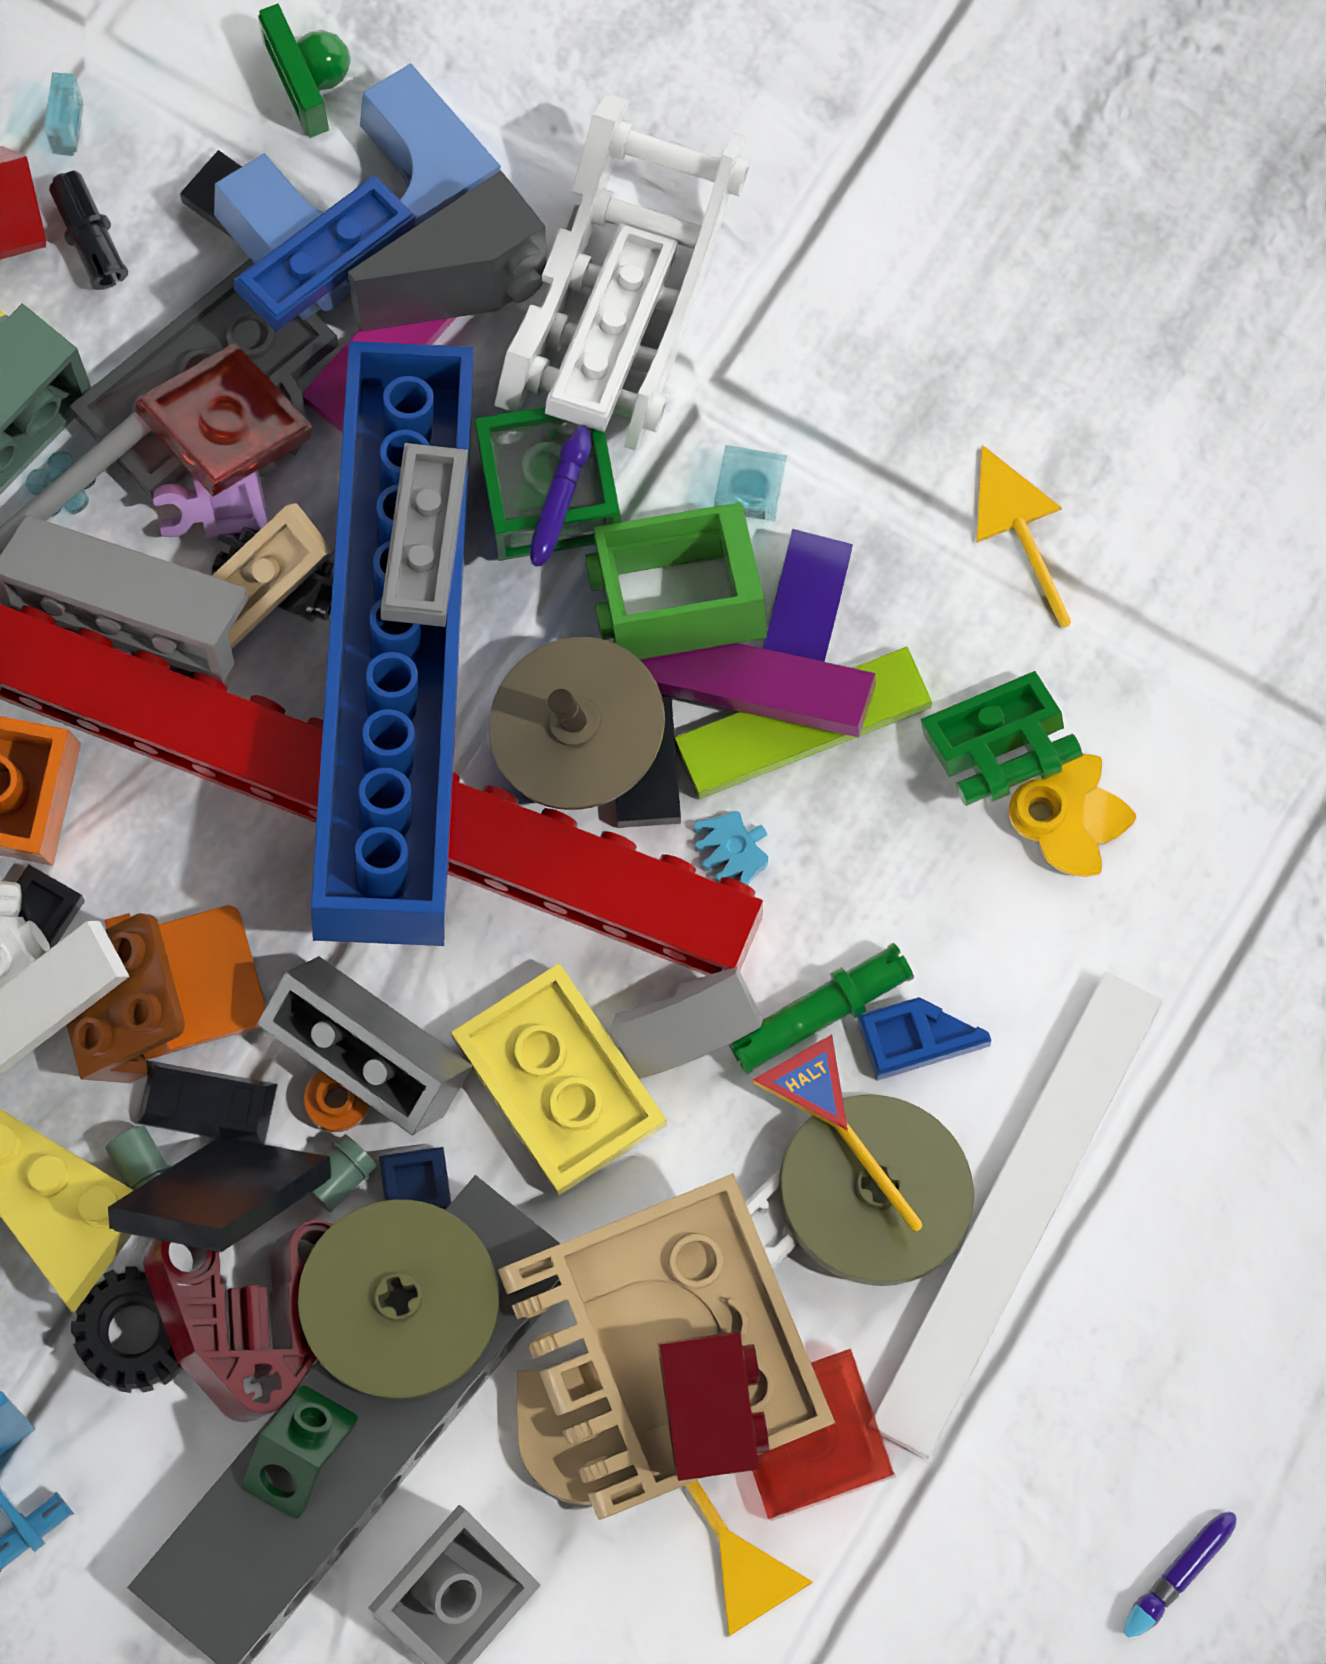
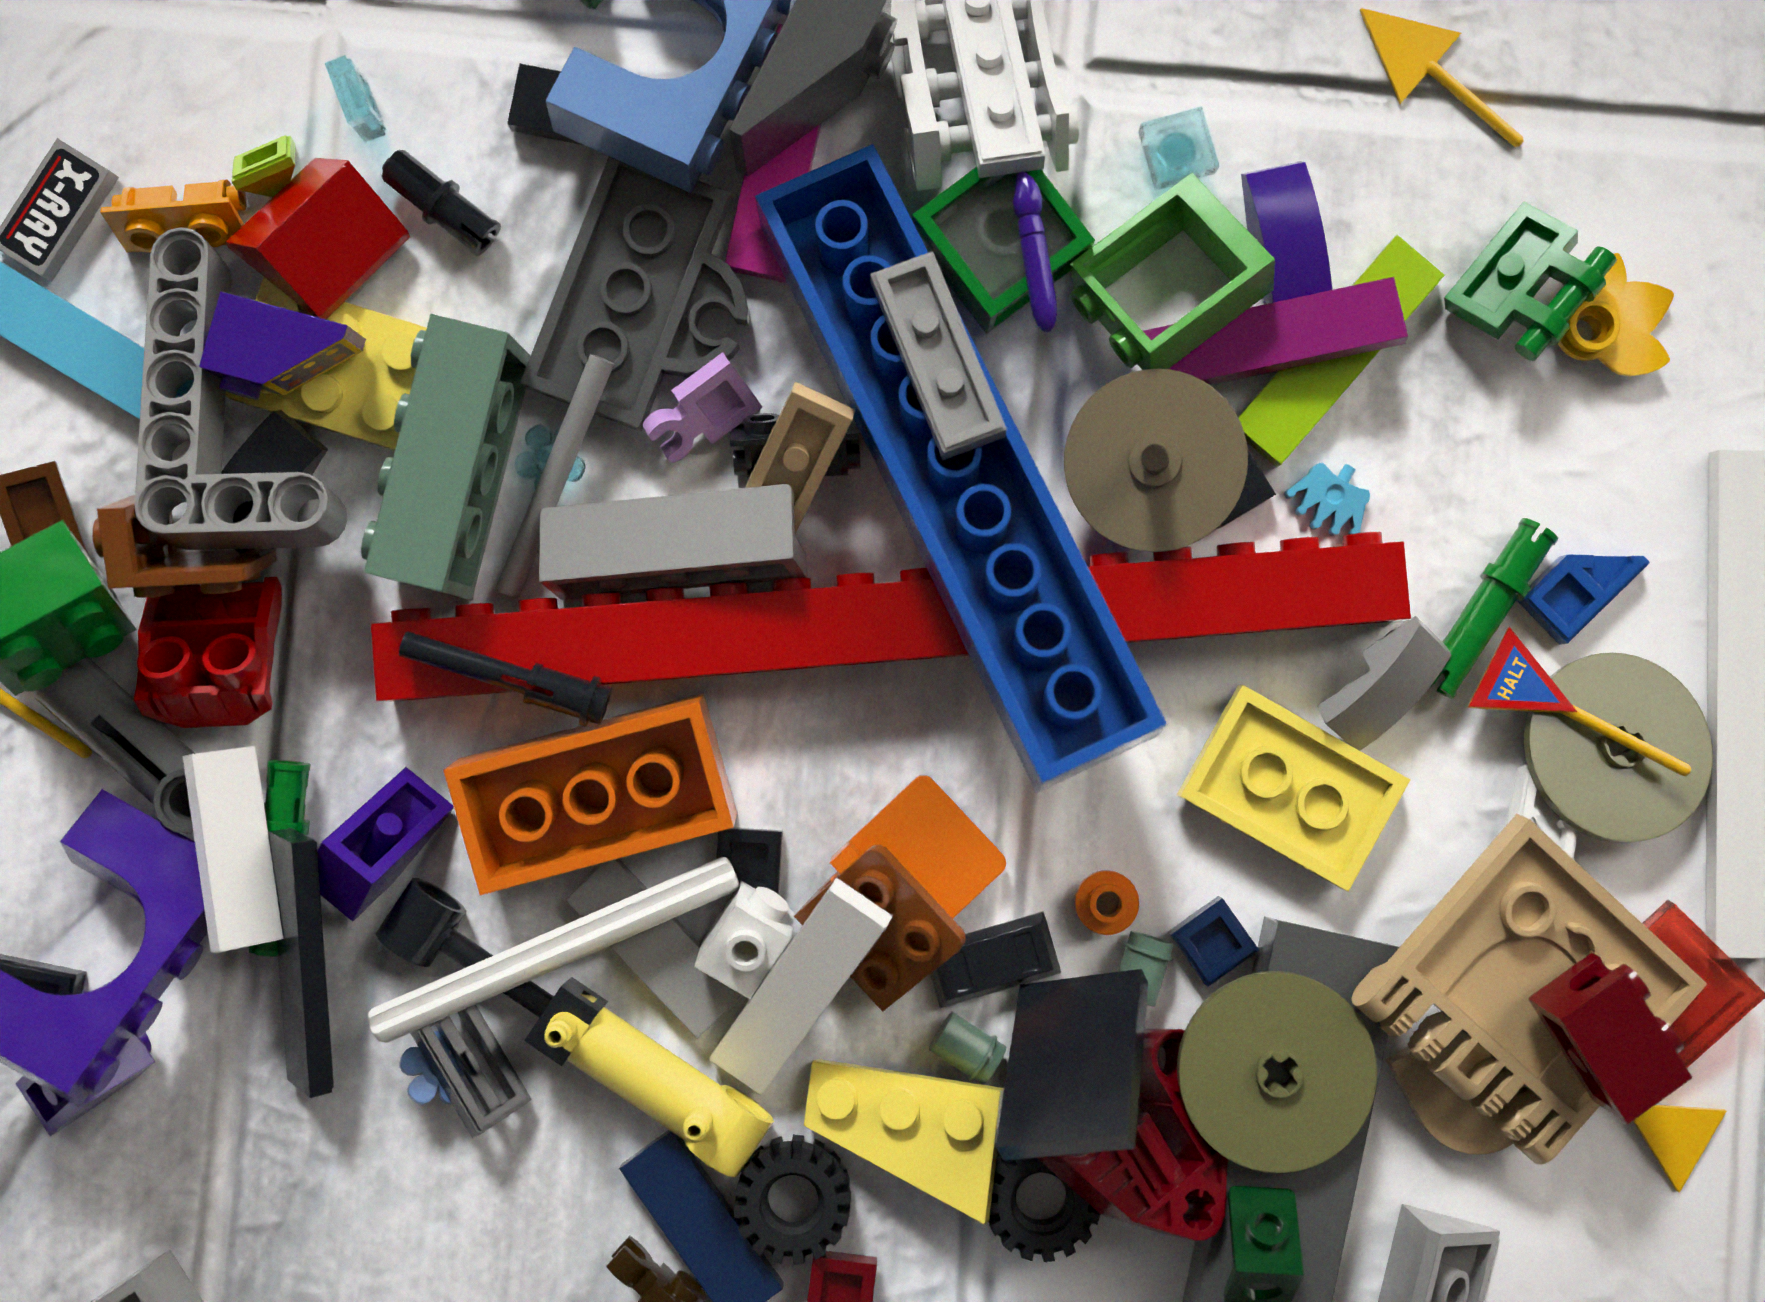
camera: 30 degrees left, 15 degrees up
(223, 419) = (675, 328): clear red tile -> none
(323, 253) = (688, 120): blue tile -> none
(364, 1045) = (1117, 850): dark grey brick -> none

